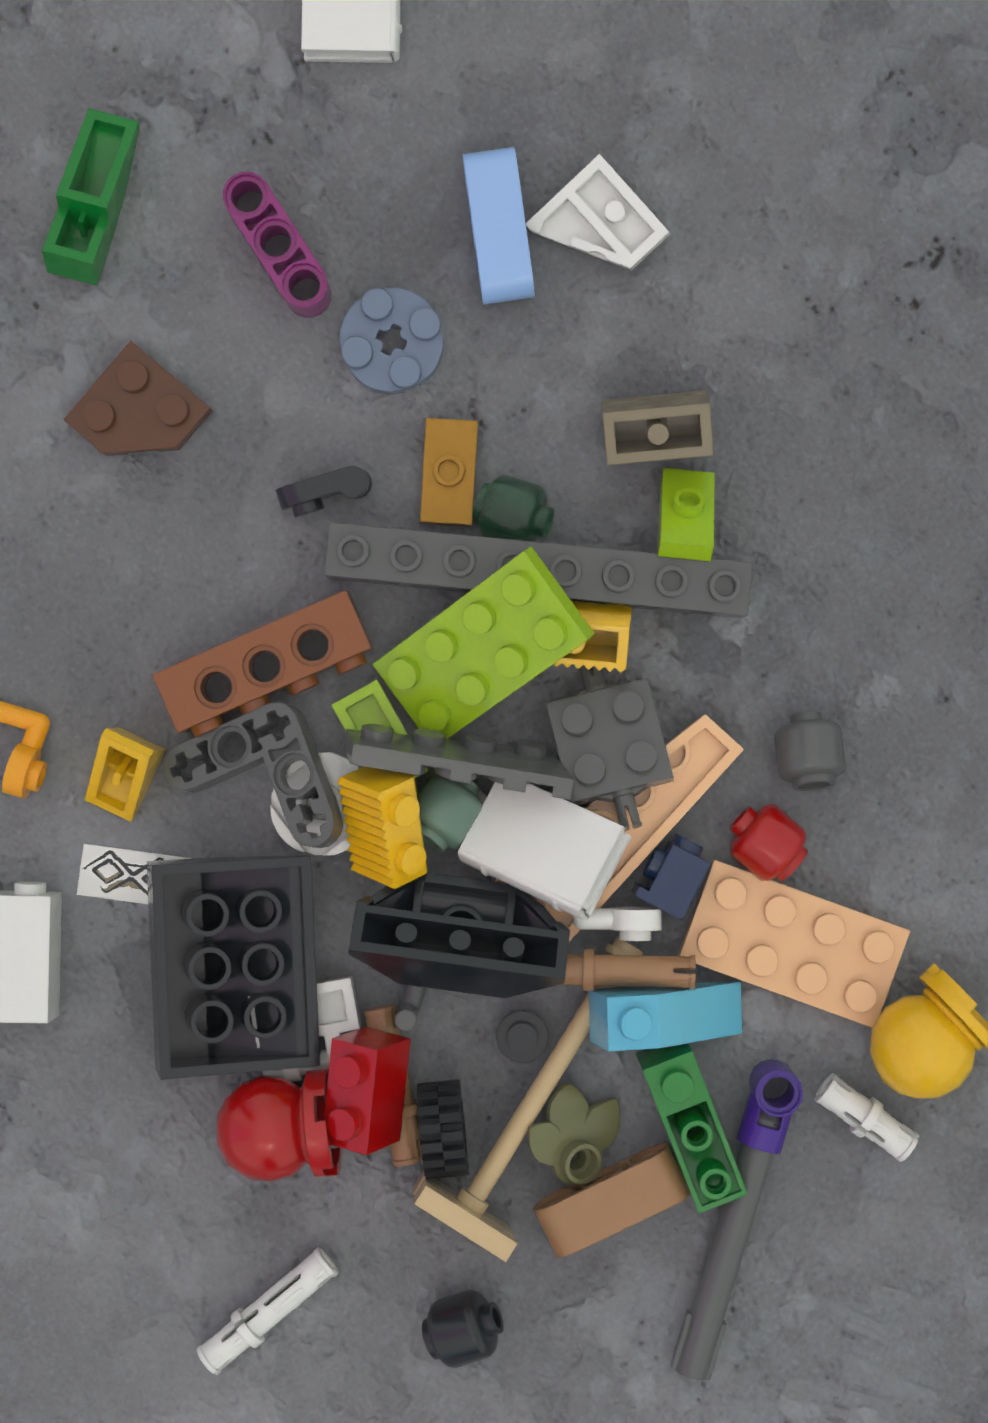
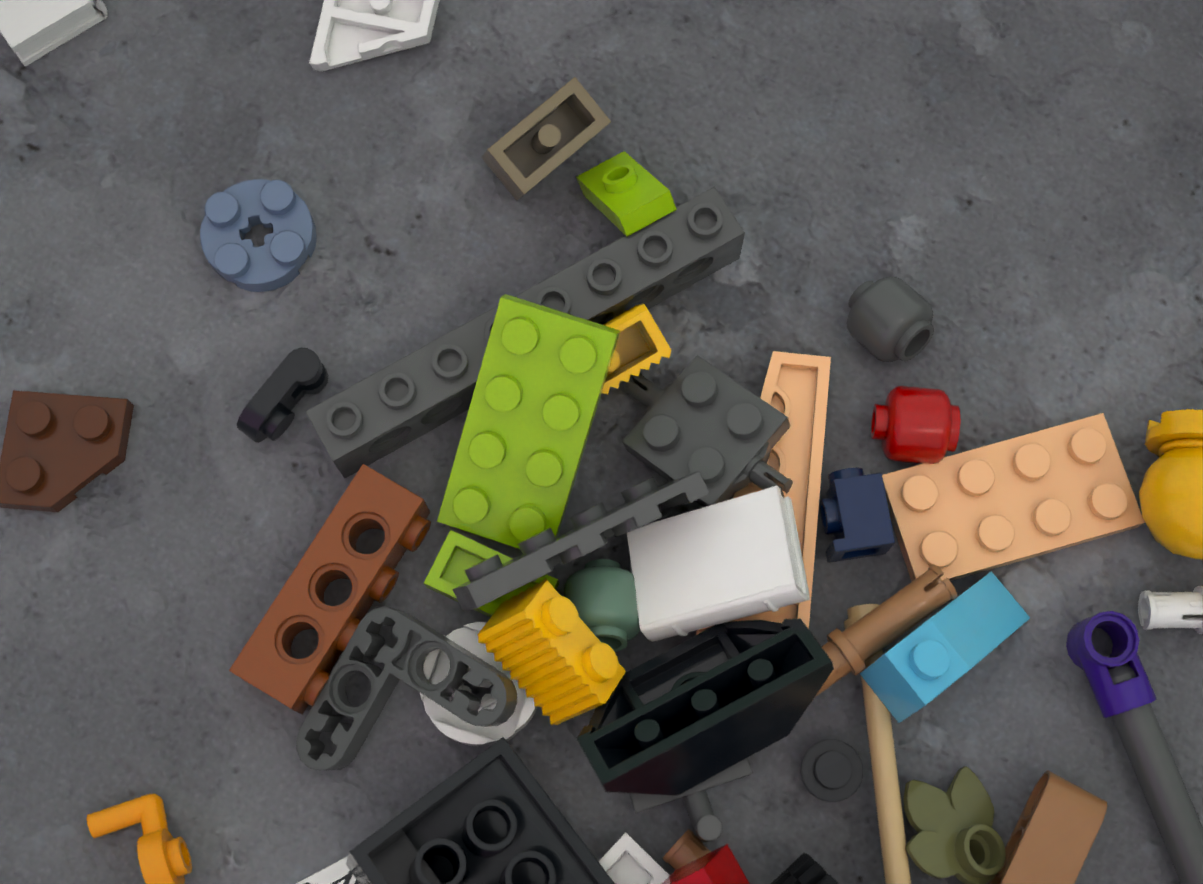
camera: 35 degrees left, 15 degrees down
(122, 772) = (263, 791): yellow slope -> none
(261, 226) = (80, 202): magenta beam -> none
(449, 472) = (386, 305): pearl gold plate -> none
(498, 225) = (287, 78): light blue beam -> none
(513, 510) = (466, 292): clear green head -> none
(631, 921) = (850, 581): white plate -> none
(692, 1125) = (1054, 731): green slope -> none

